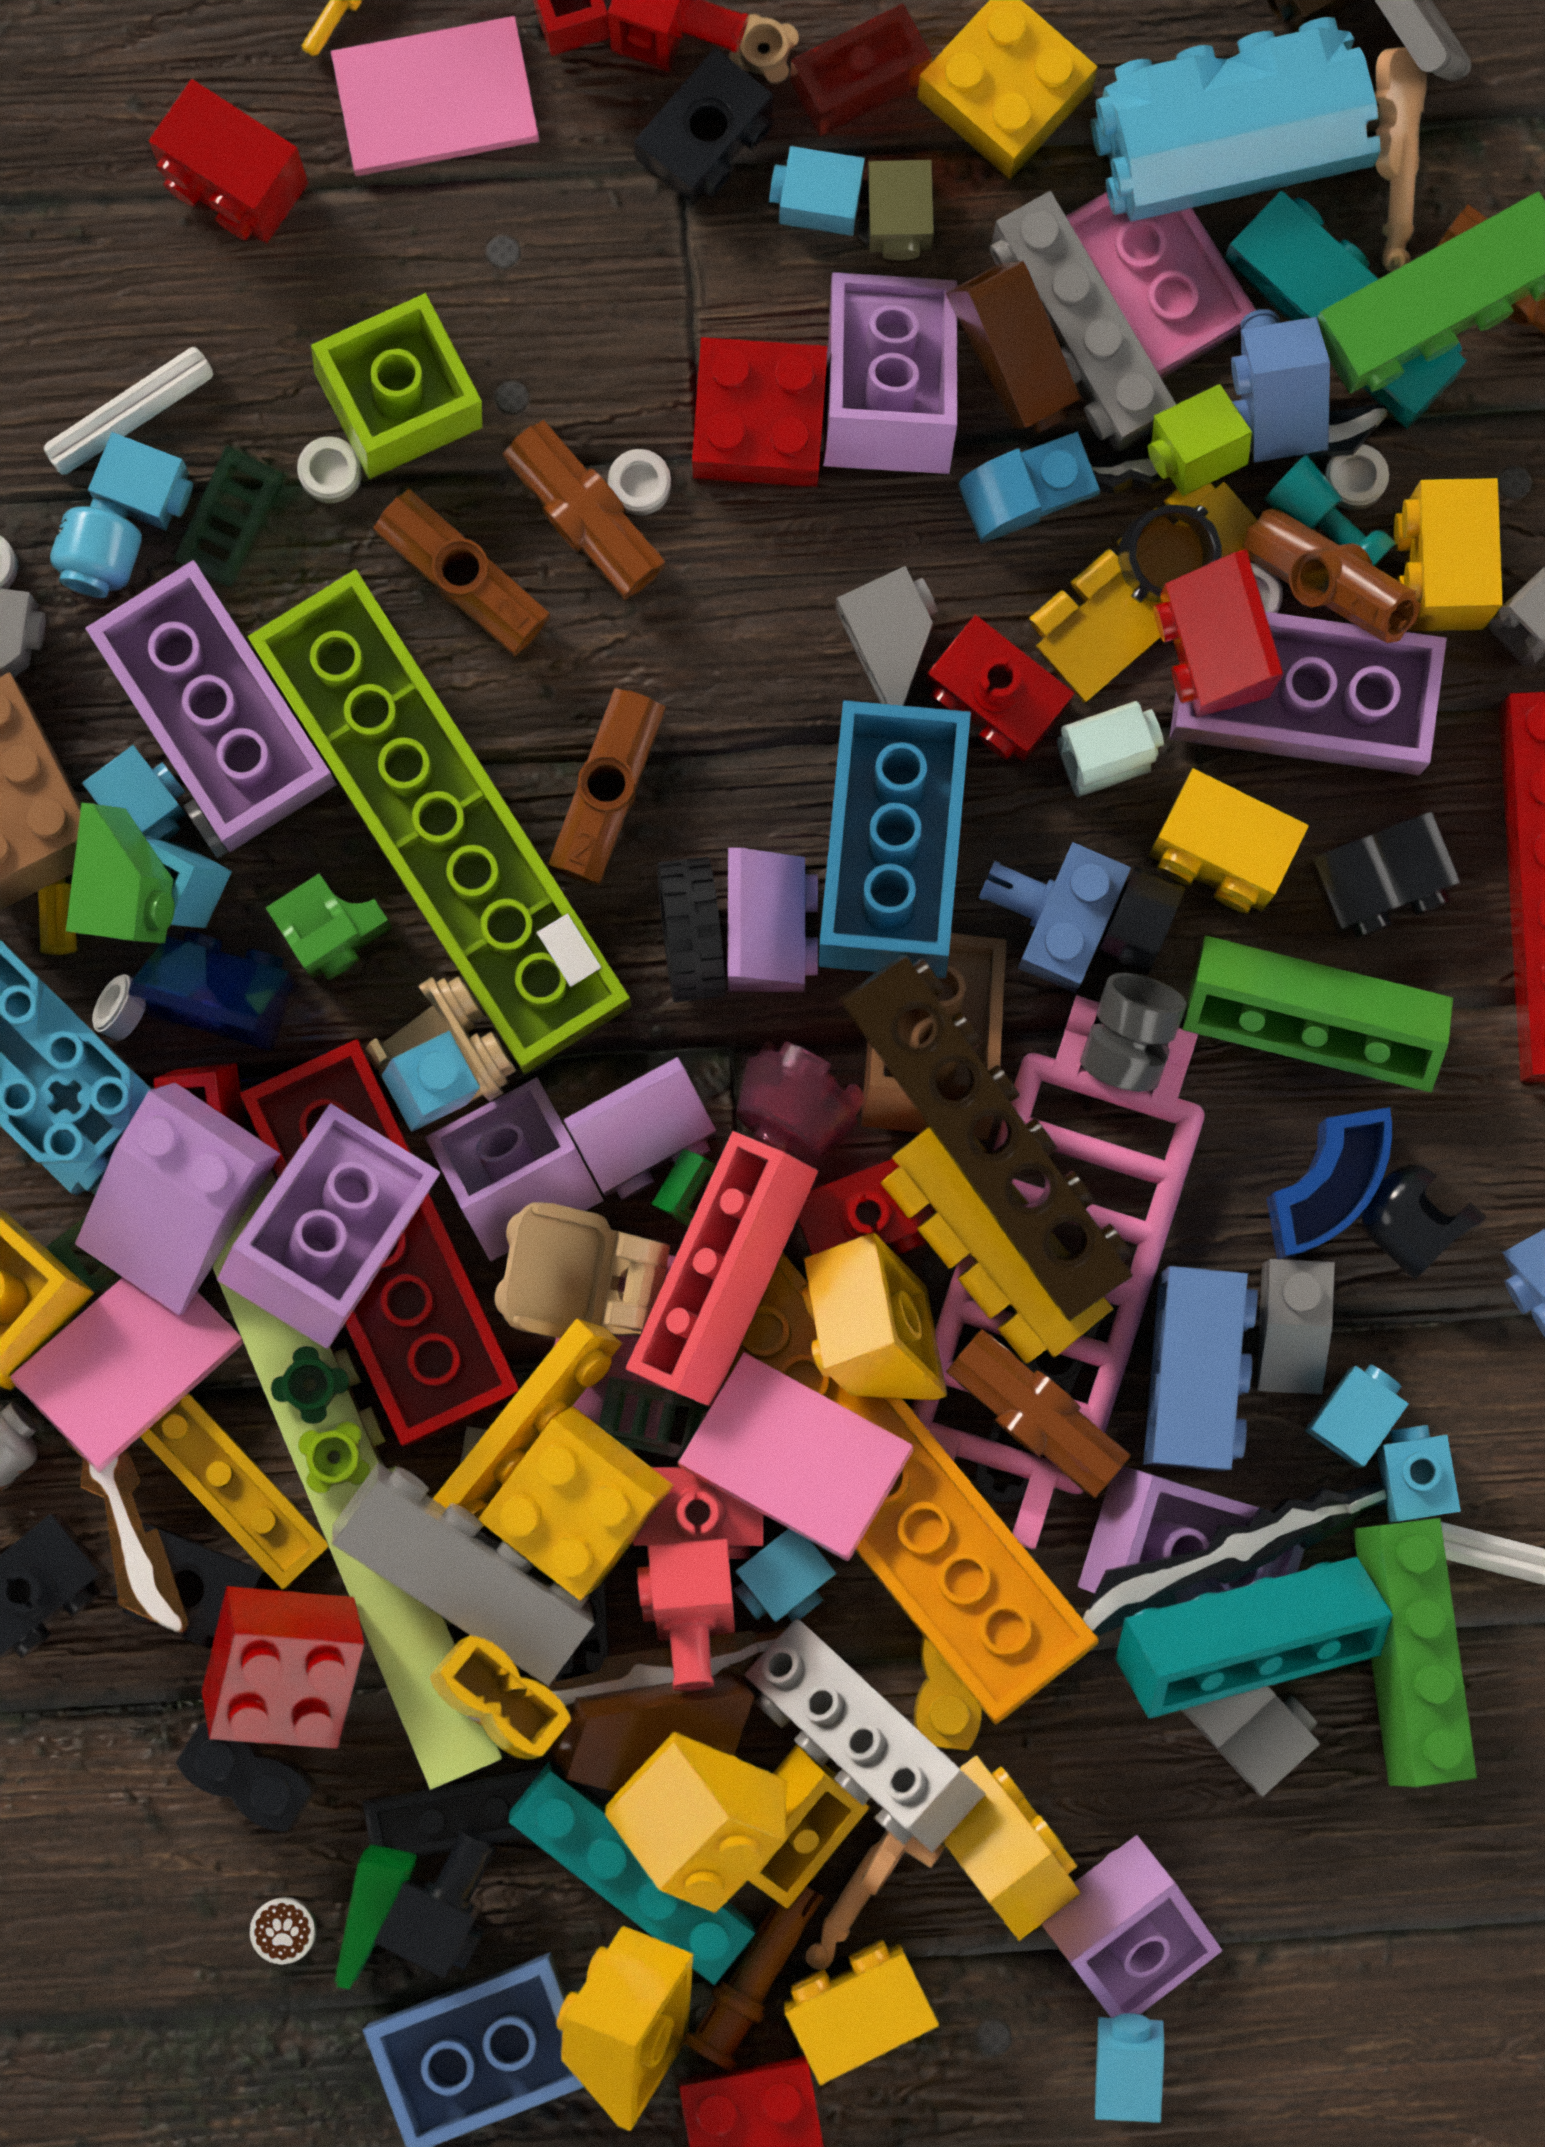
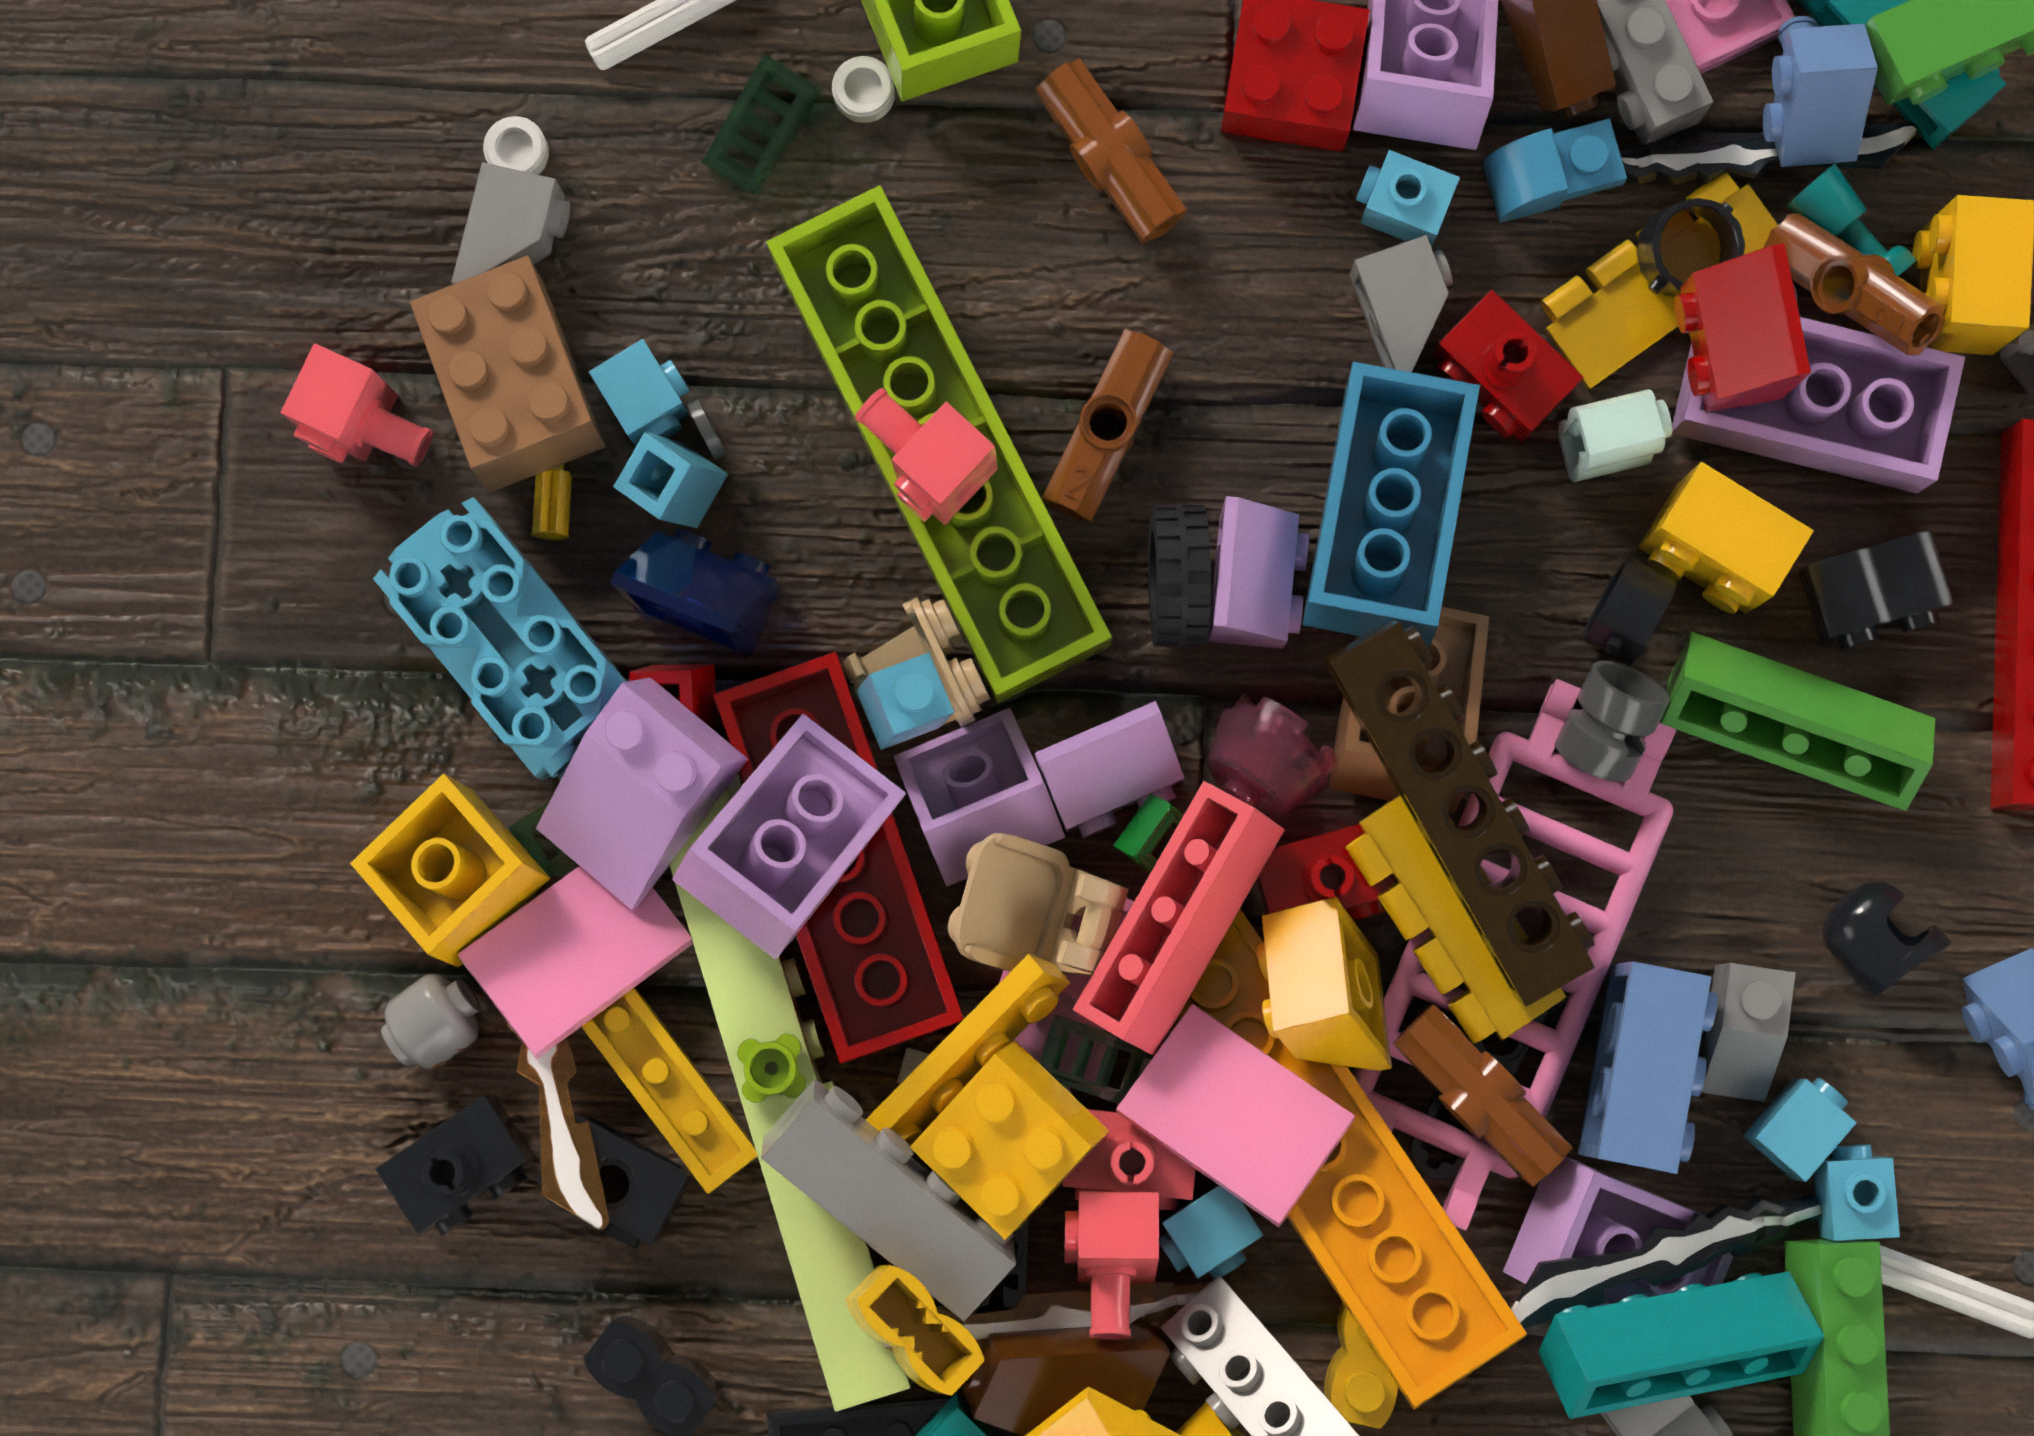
camera: 15 degrees right, 0 degrees up
(95, 548) = (626, 143): medium azure head -> none
(115, 1010) = (599, 601): white tile -> none
(118, 880) = (613, 469): bright green slope -> none
(142, 481) = (676, 82): medium azure brick -> none
(211, 706) = (724, 308): lavender brick -> none
(282, 1667) = (699, 1274): red brick -> none
(291, 1385) = (735, 993): dark green plate -> none
(325, 928) = (815, 539): bright green brick -> none
(434, 544) = (959, 172): dark orange piece -> none
(437, 843) = (934, 463): none -> coral brick
(569, 950) = (1055, 583): white sticker -> none
(640, 481) = (1169, 129): white tile -> none
(883, 529) = (1406, 197): none -> medium azure brick
(1065, 912) = (1553, 596): medium blue brick -> none
(1199, 440) = (1732, 138): lime brick -> none
(1338, 1183) = (1802, 894): blue brick -> none
(1358, 477) = (1883, 192): white tile -> none

